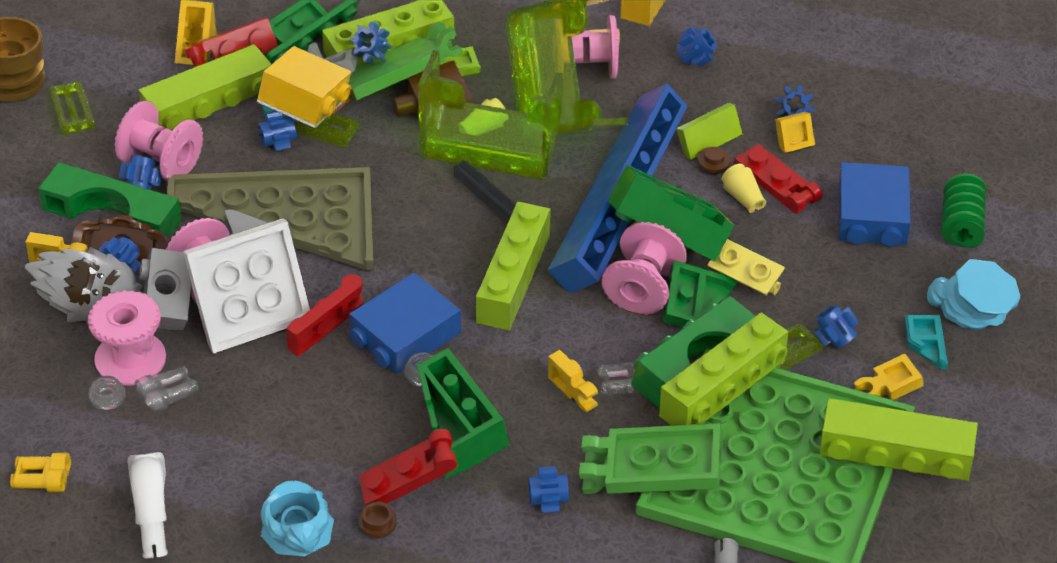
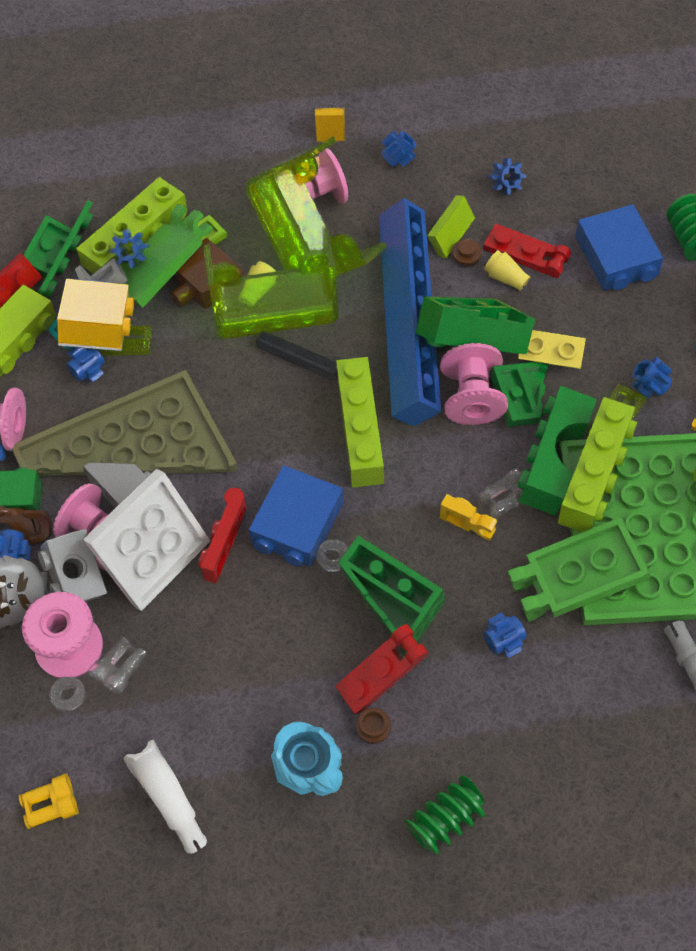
camera: 20 degrees left, 15 degrees up
(795, 132) = (520, 201): yellow plate -> none

